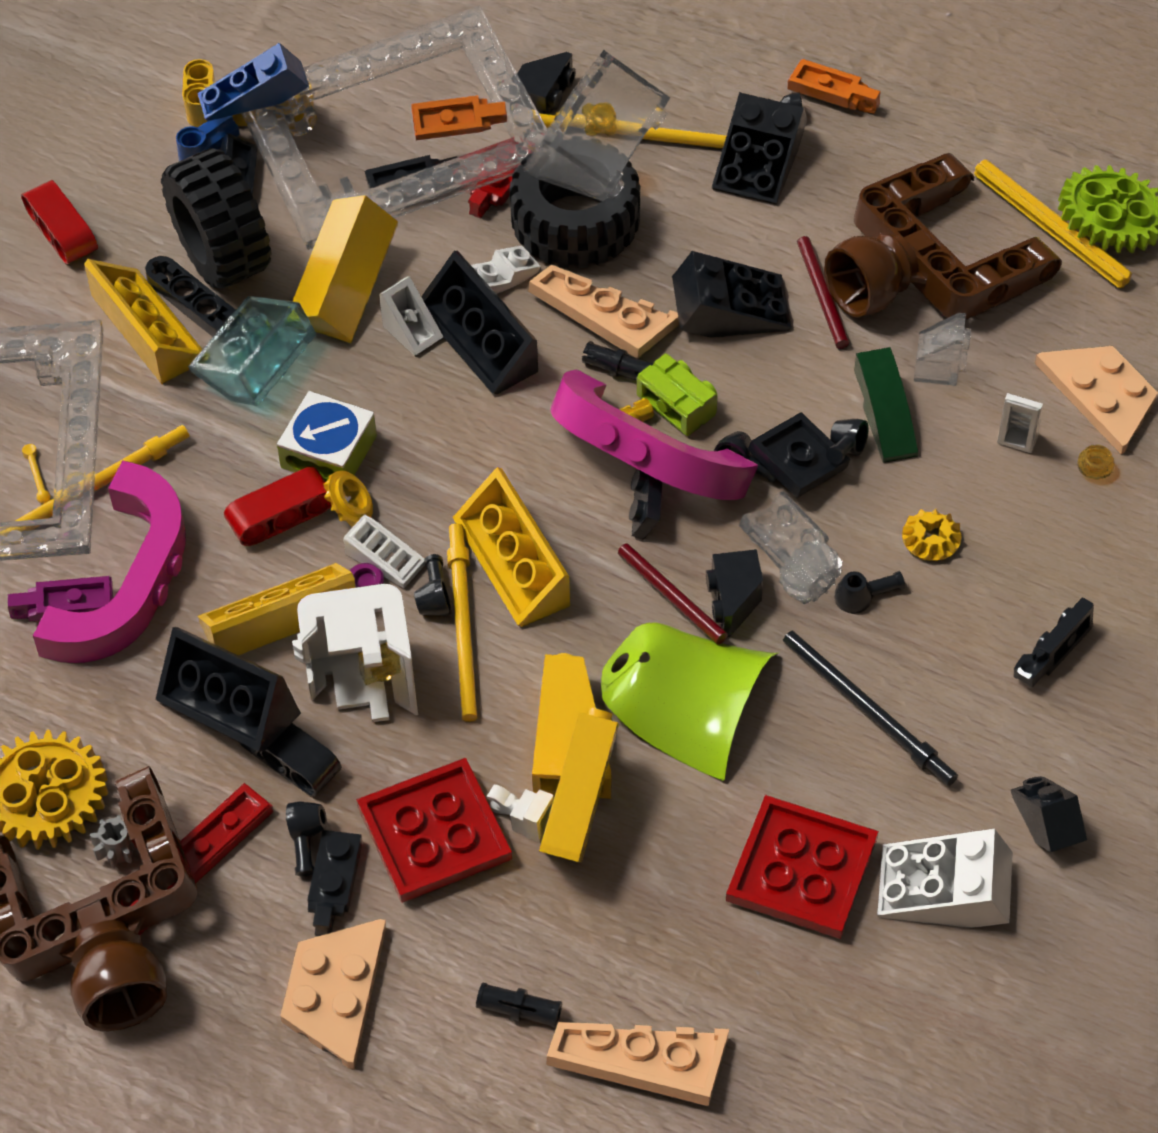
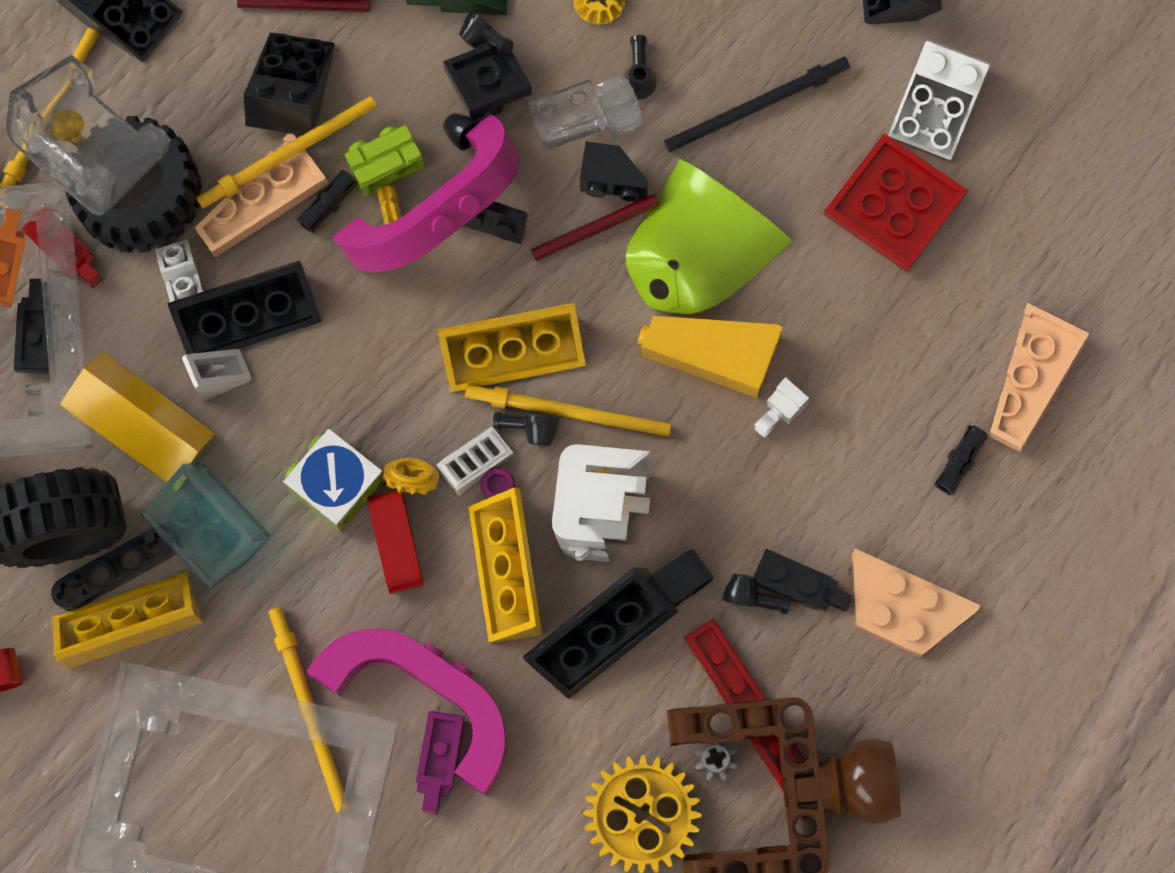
camera: 70 degrees left, 20 degrees up
(30, 452) = (246, 763): yellow hinge -> none
(434, 830) = (778, 487): red plate -> none
(580, 785) = (799, 352): yellow slope -> none
(604, 277) = (229, 184): none -> yellow bar

